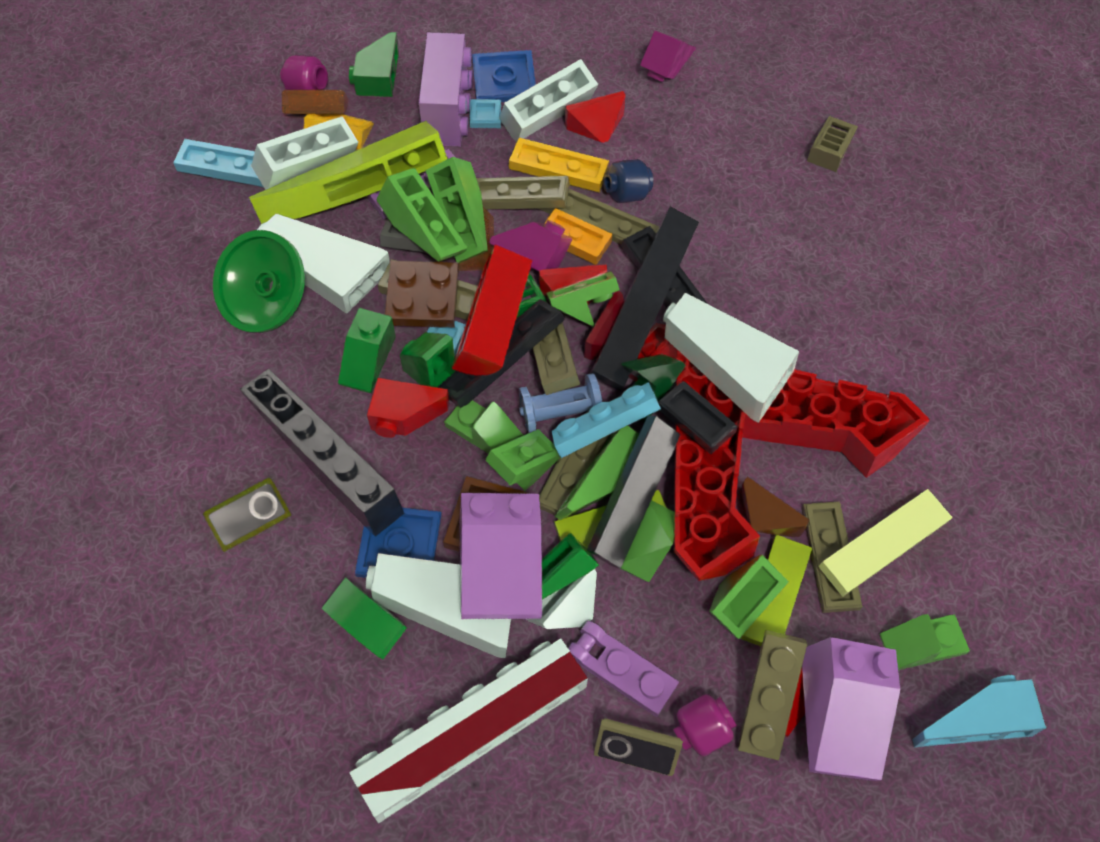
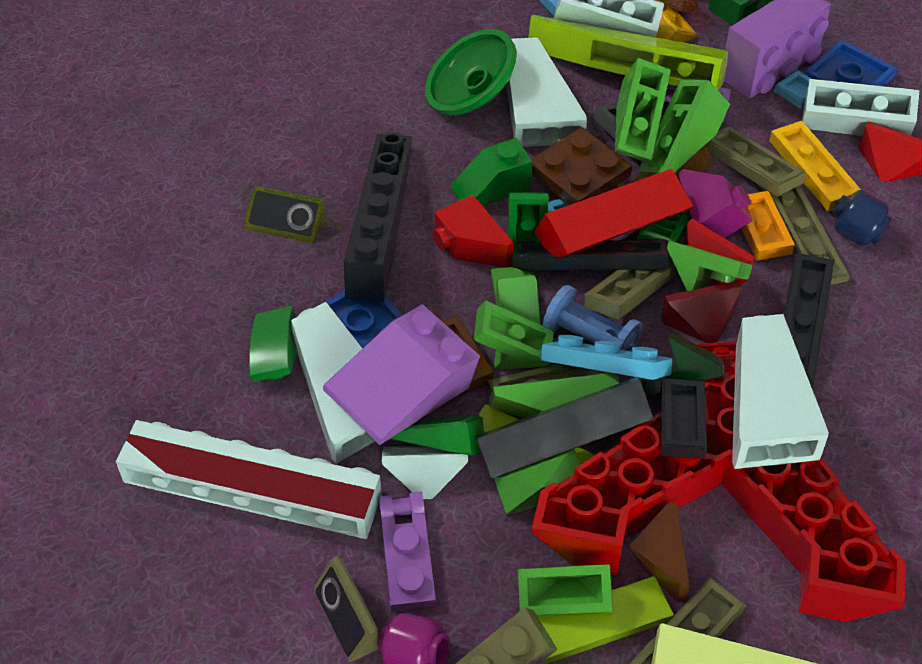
camera: 50 degrees right, 10 degrees down
(644, 298) = (787, 295): black tile -> none

